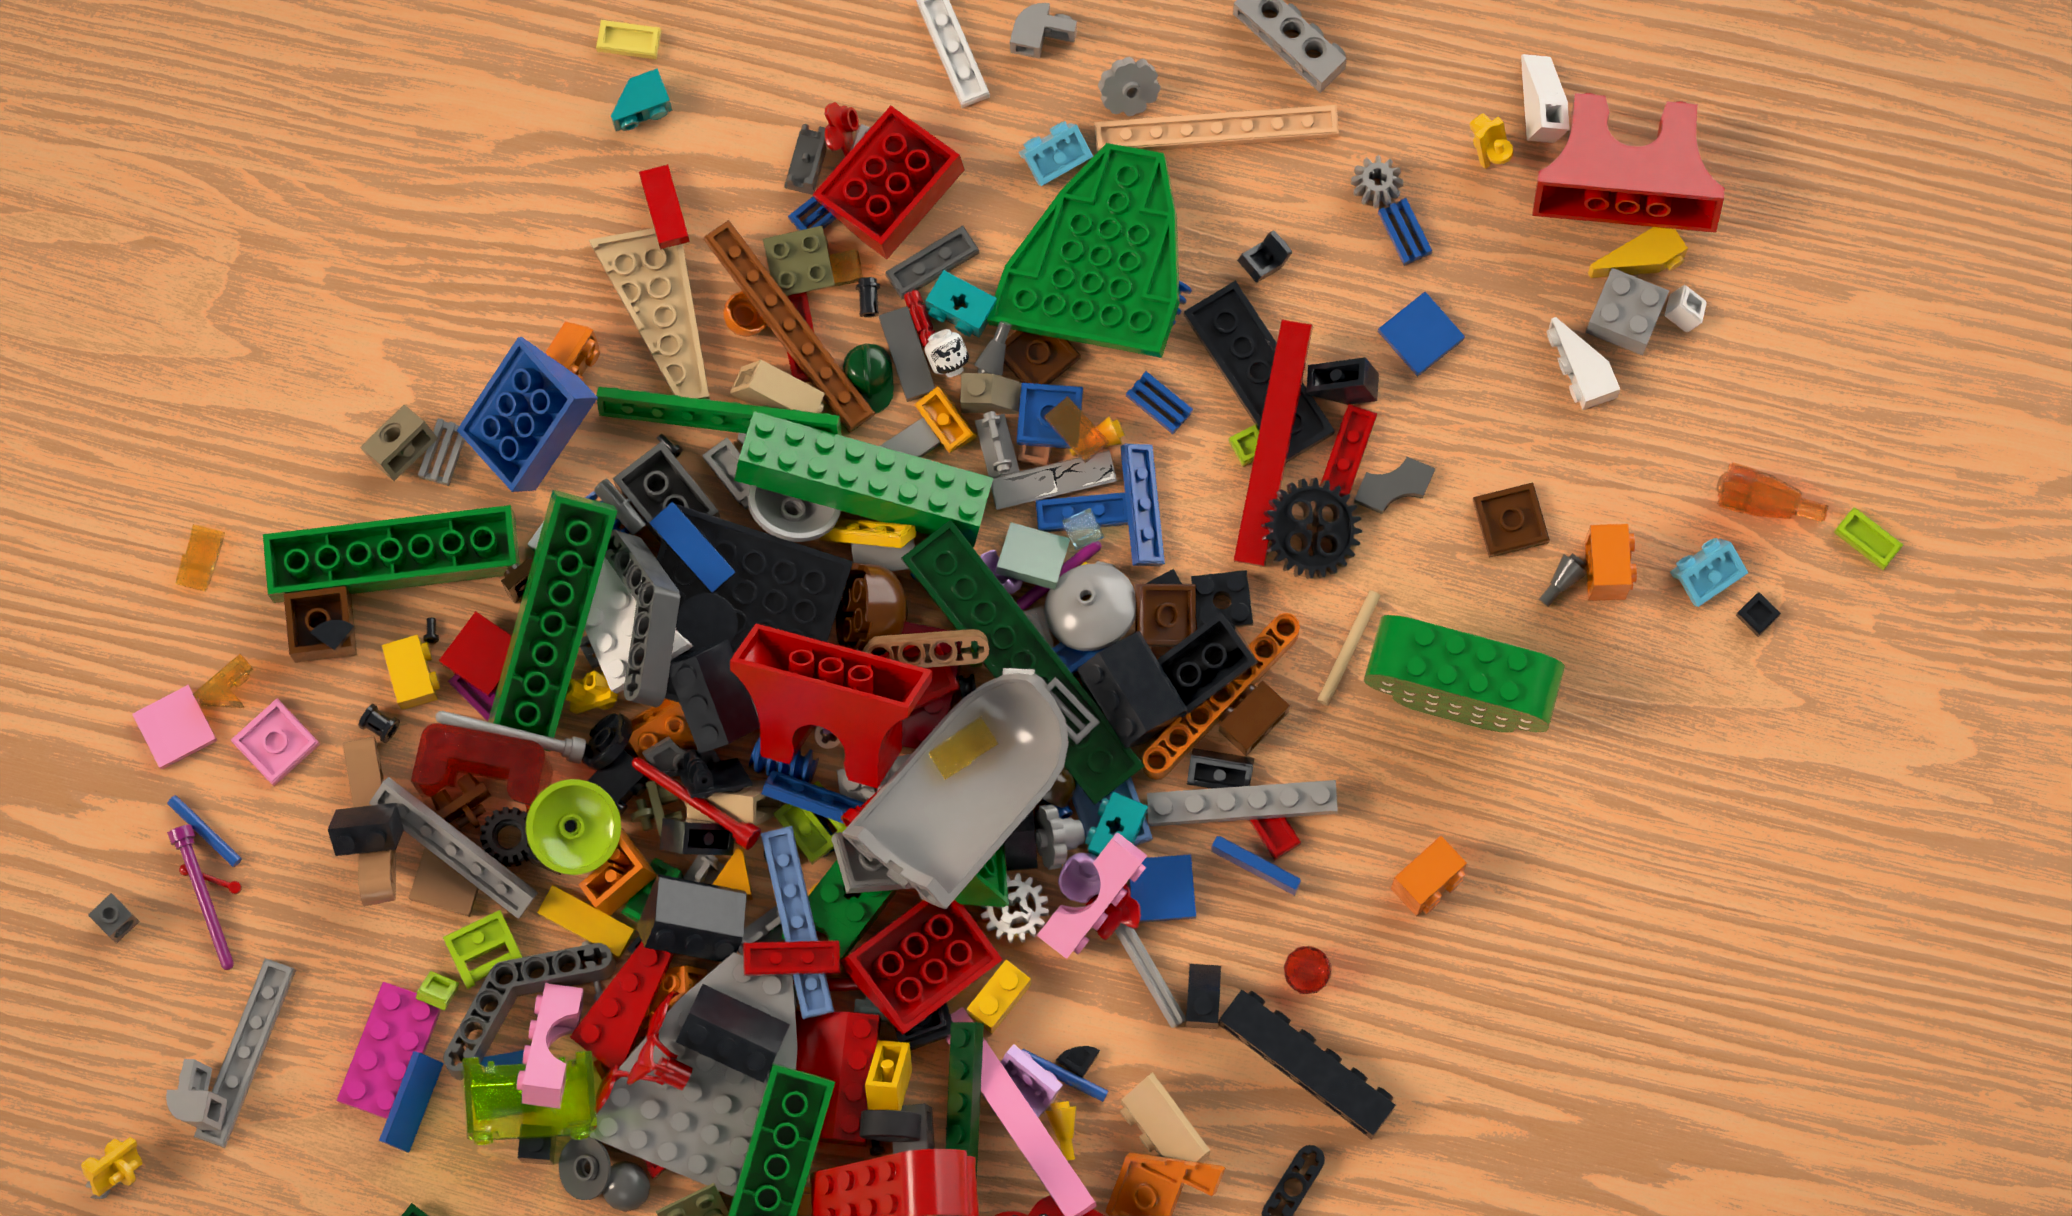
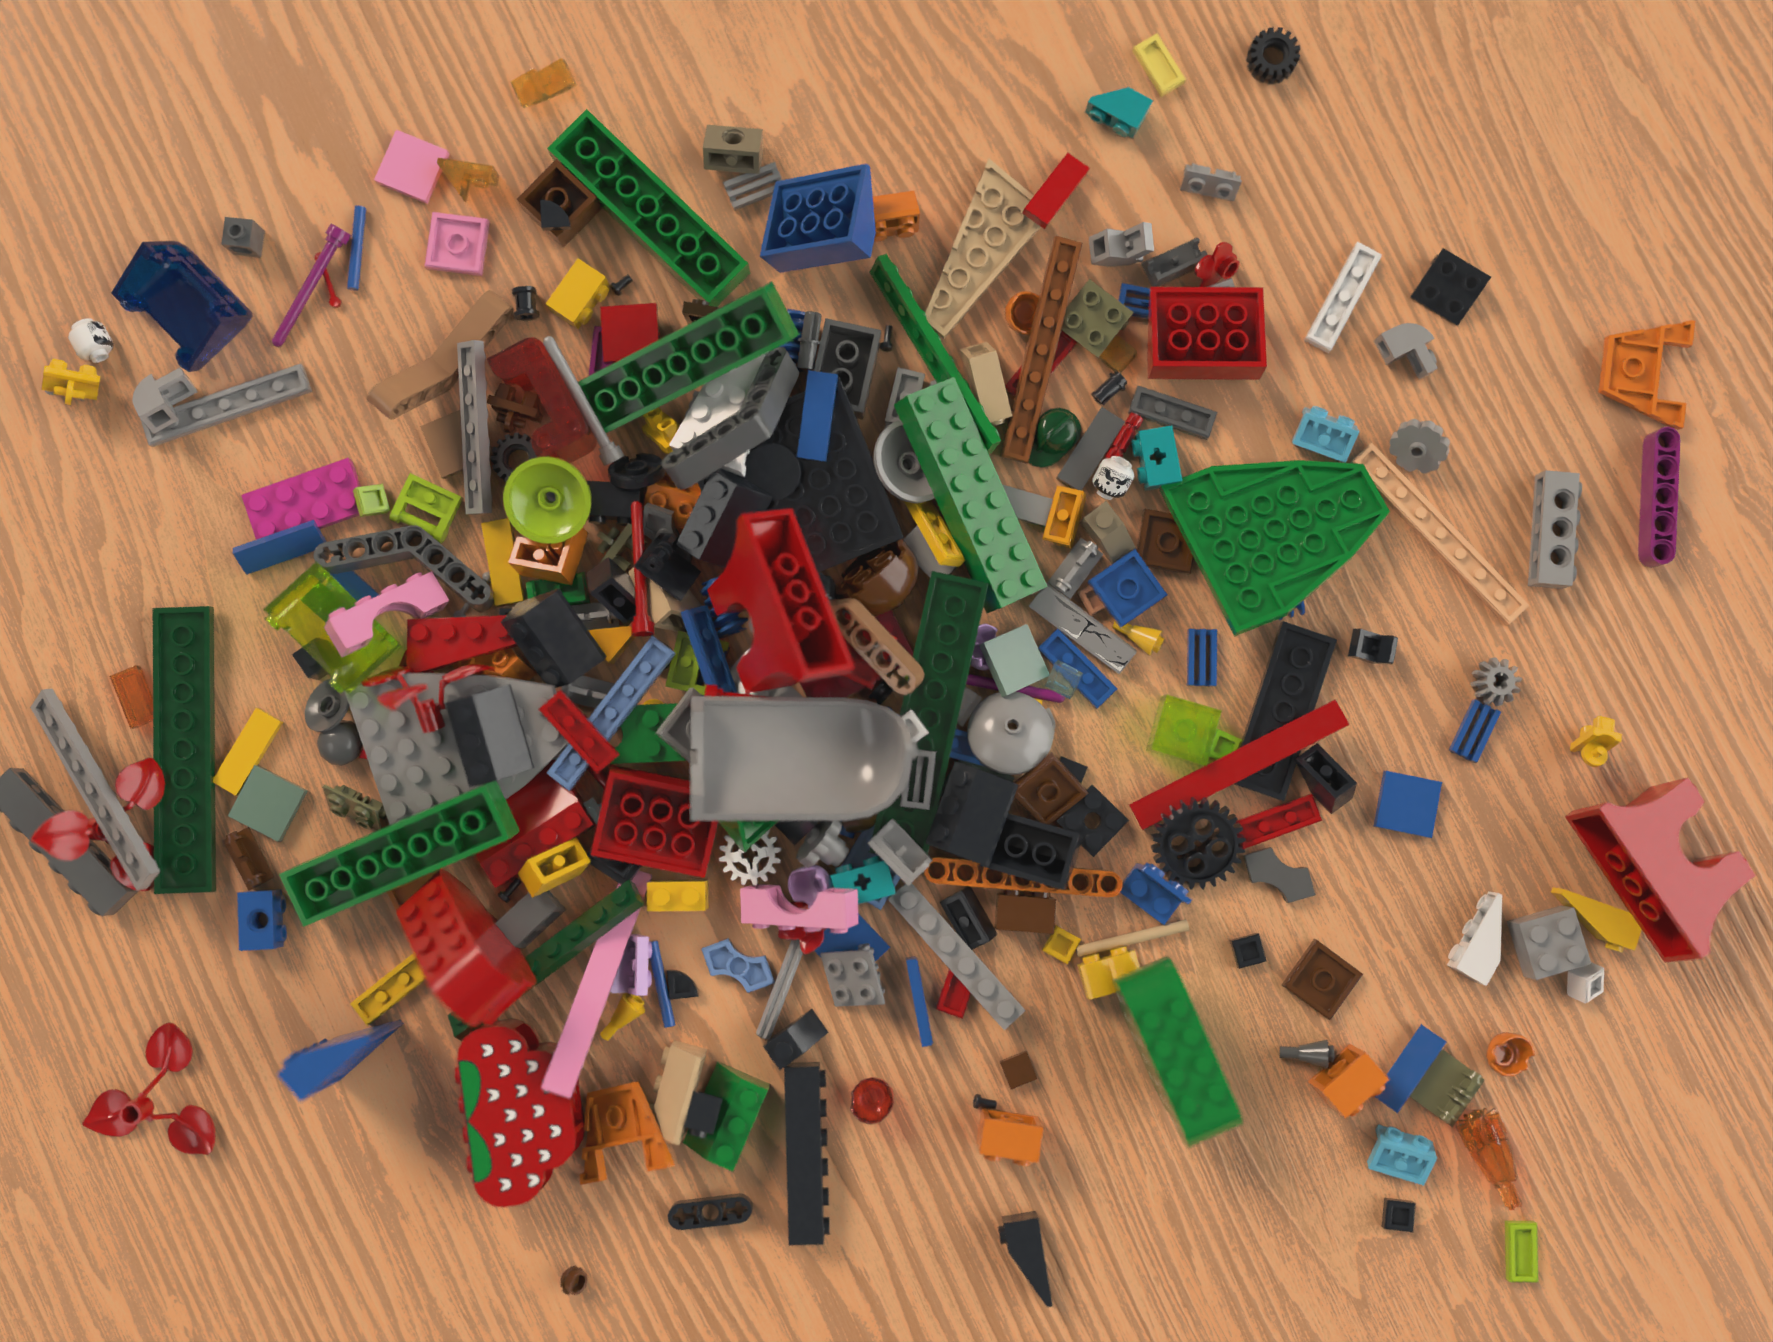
camera: 45 degrees right, 10 degrees up
(88, 1124) = (90, 340): none -> white head
(126, 1015) = (183, 300): none -> clear blue windscreen
(365, 829) = (432, 356): black brick -> none
(758, 192) = (1121, 247): none -> light grey brick
(774, 69) = (1219, 185): none -> light grey hinge
(890, 1125) = (515, 900): black tyre -> none
(963, 747) = (827, 729): clear yellow slope -> none
(992, 357) = (1137, 512): dark grey cone -> none
(1076, 429) = (1131, 616): clear orange tile -> none
(1114, 990) = (748, 970): none -> medium blue tile
(1115, 774) = (900, 851): none -> light grey hinge
(1142, 505) = (1116, 706): tile -> none
(1190, 903) = (853, 977): none -> light grey hinge
(1202, 1112) = (702, 1114): none -> black brick
(1207, 465) = (1183, 730): none -> clear neon green brick
(1221, 1105) = (739, 1108): none -> green slope
(1306, 711) = (1061, 944): none -> yellow tile
(1323, 596) = (1152, 893): none -> blue bracket
(1355, 697) = (1098, 972): none -> yellow brick
(1382, 885) = (978, 1101): none -> black piece
(1383, 830) = (1018, 1070): none -> reddish brown tile
(1437, 561) = (1248, 950): none -> black tile
(1540, 942) = (1025, 1246): none -> black slope
(1543, 100) = (1659, 754): white slope -> none
(1642, 507) = (1410, 1067): none -> blue tile
(1680, 490) = (1447, 1088): none -> olive hinge
(1694, 416) = (1509, 1053): none -> orange hair

